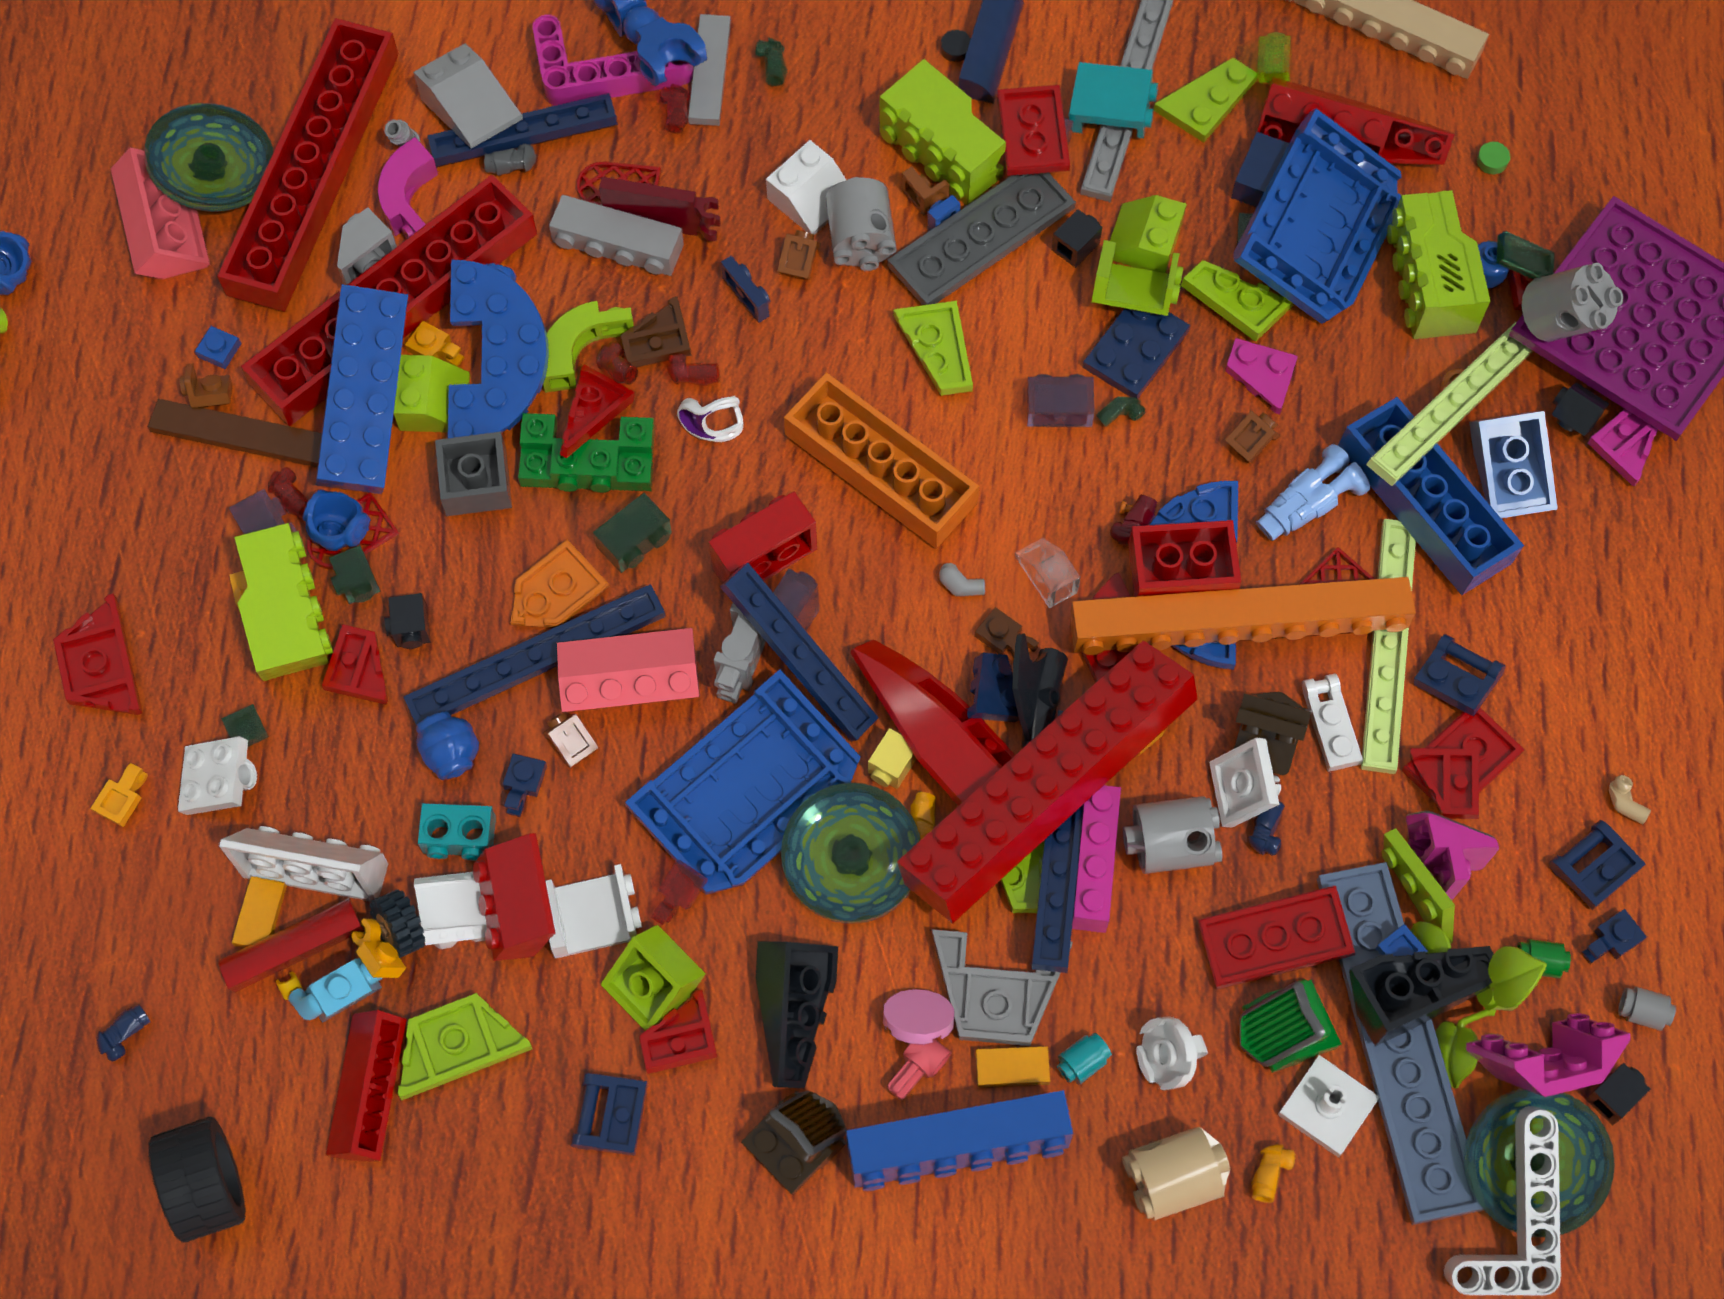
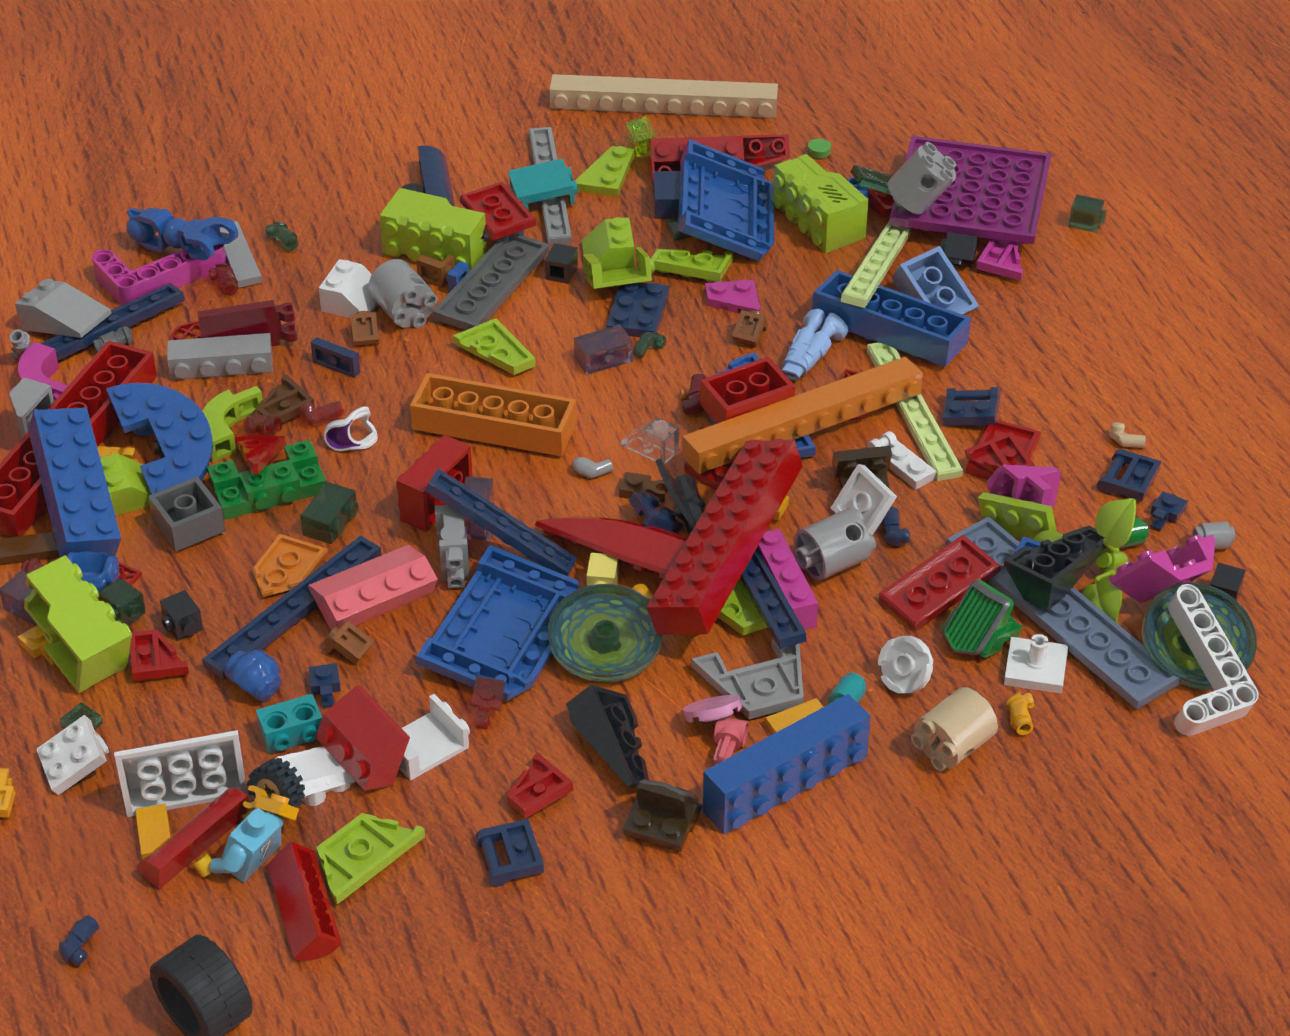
camera: 25 degrees left, 25 degrees down
(652, 977) = (494, 758): lime slope -> none

